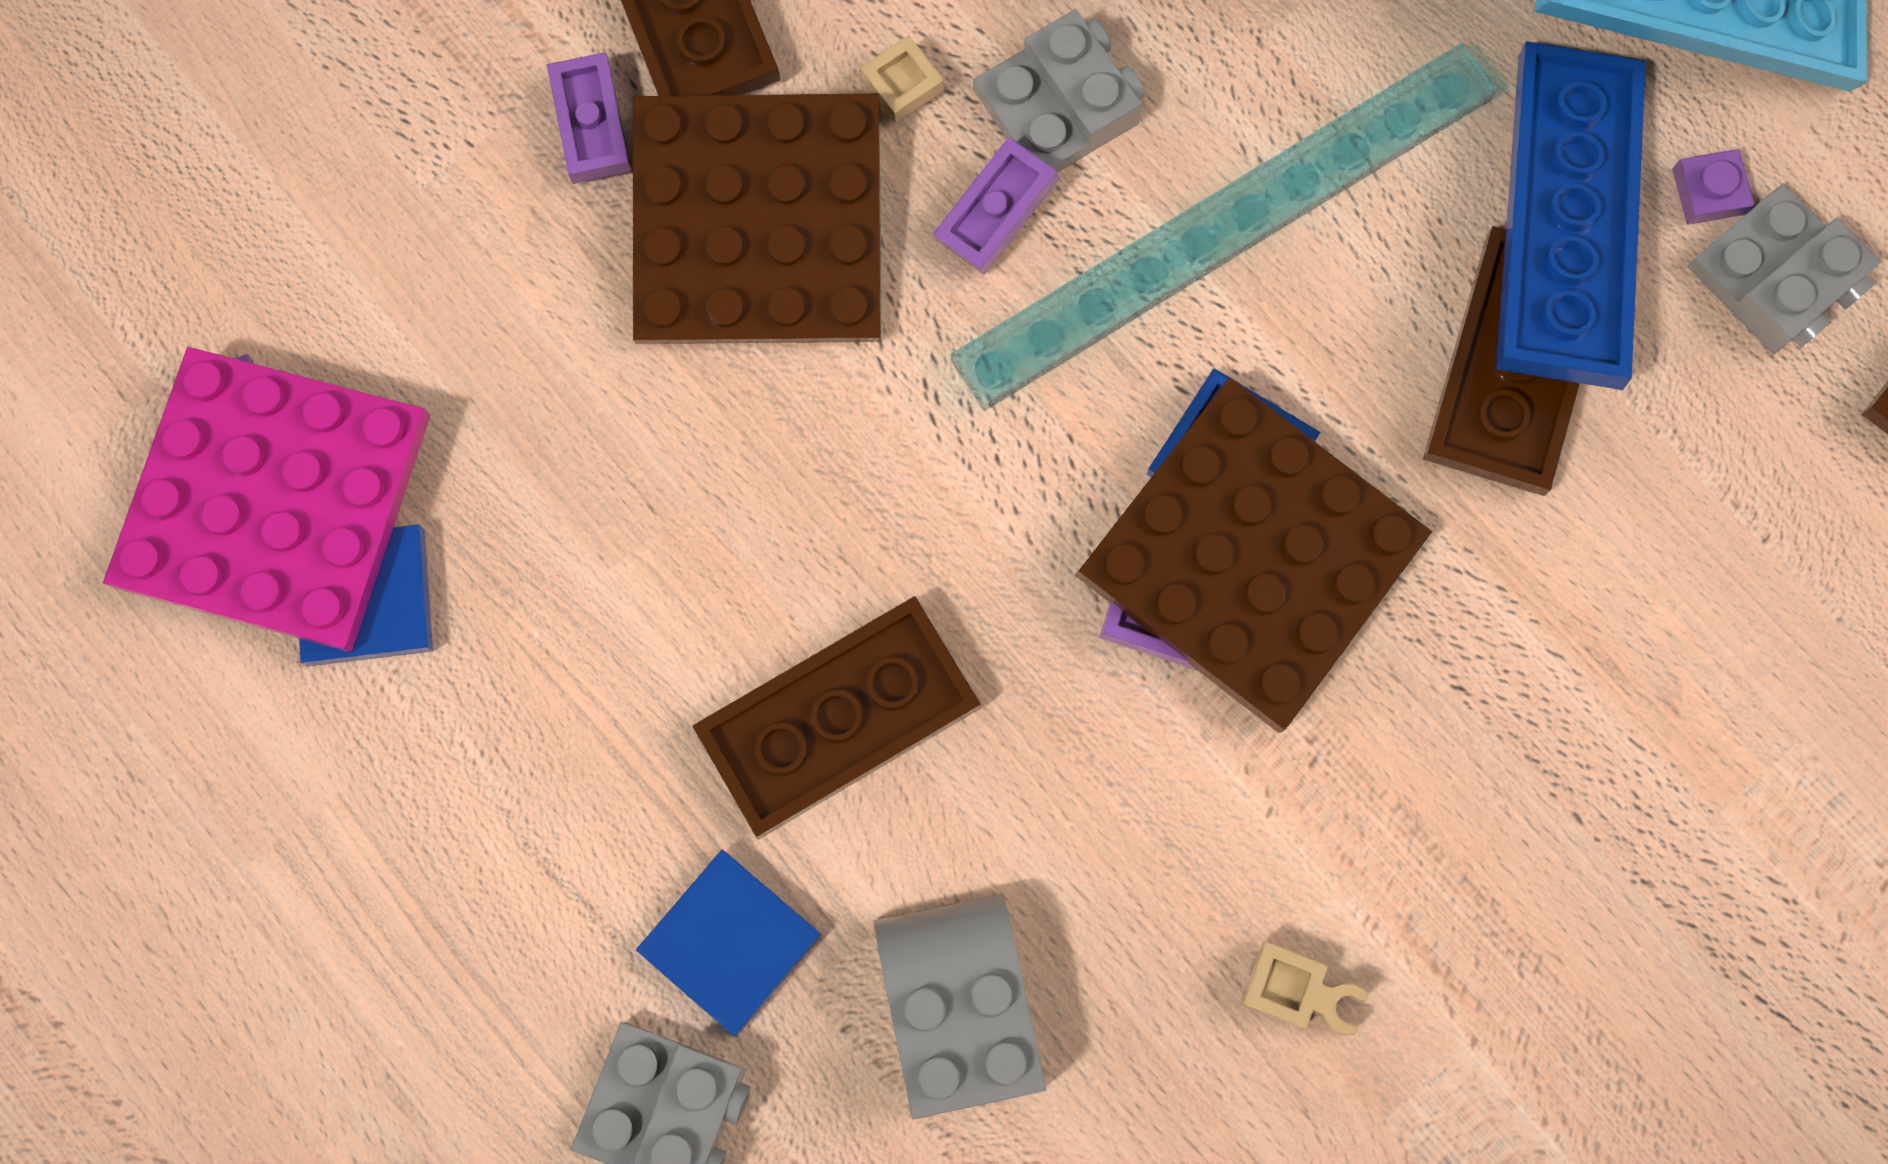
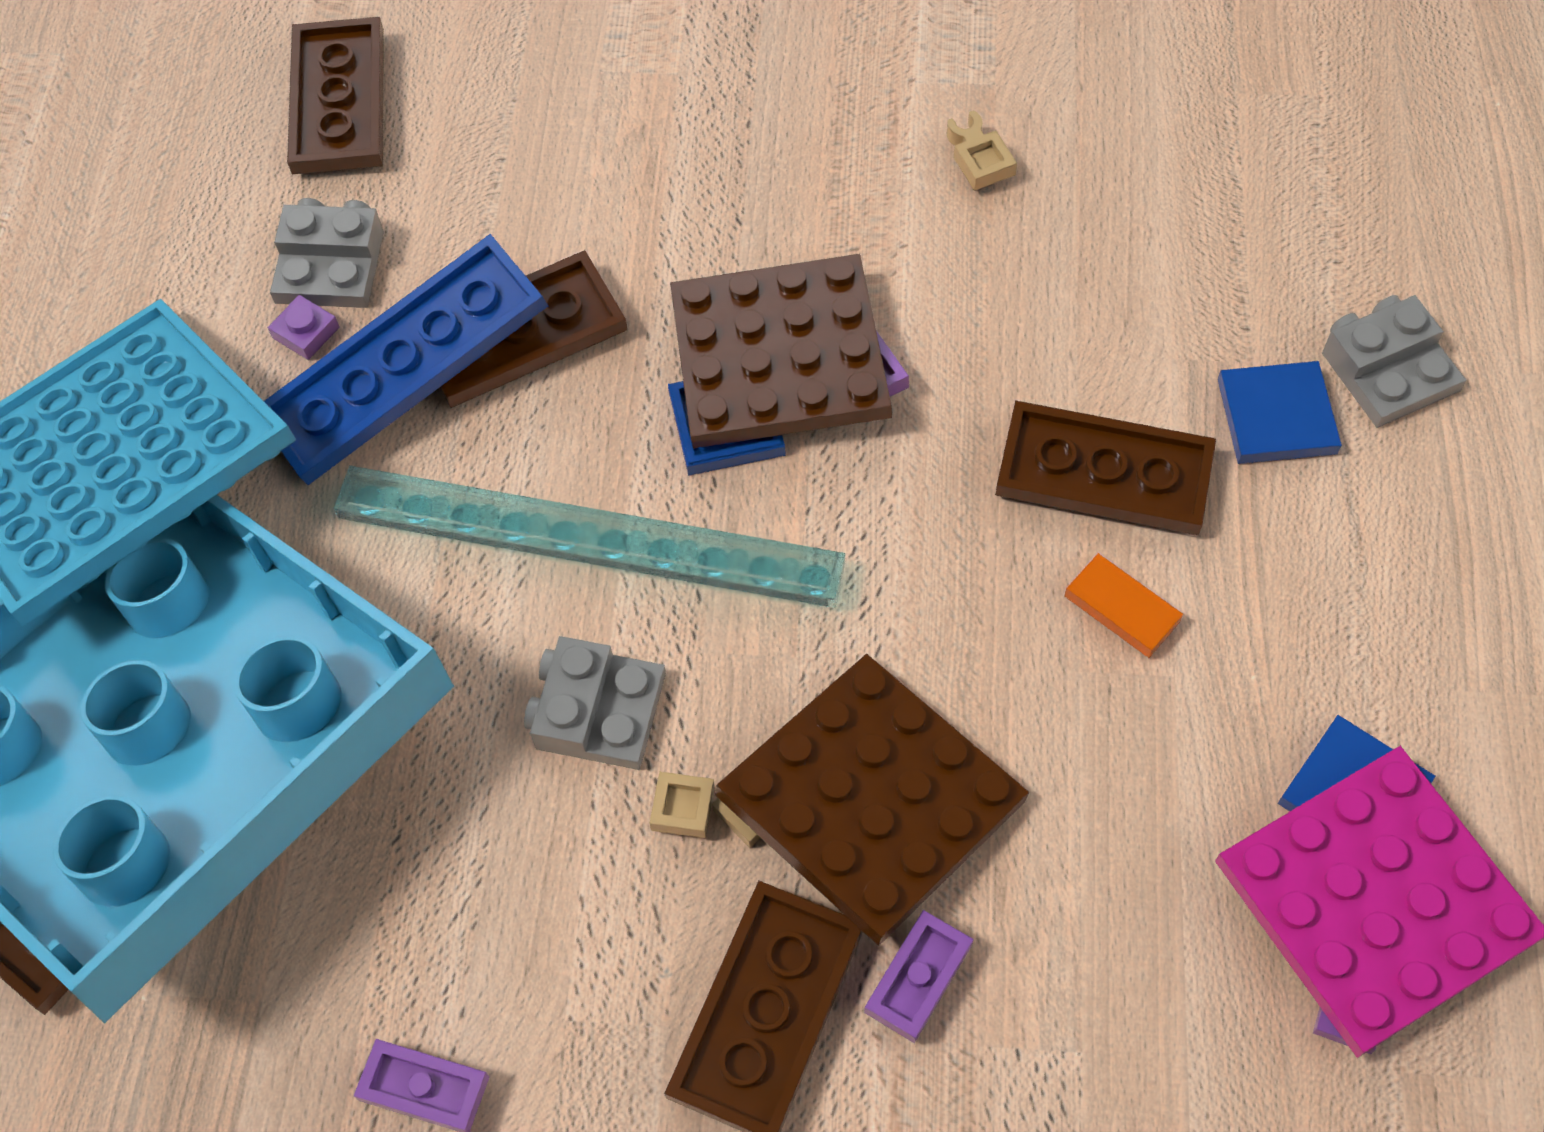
camera: 135 degrees left, 15 degrees down
(703, 592) = (1123, 605): none -> orange tile
(958, 1006) = (1173, 275): light grey brick -> none
(996, 205) = (712, 664): medium lavender plate -> none

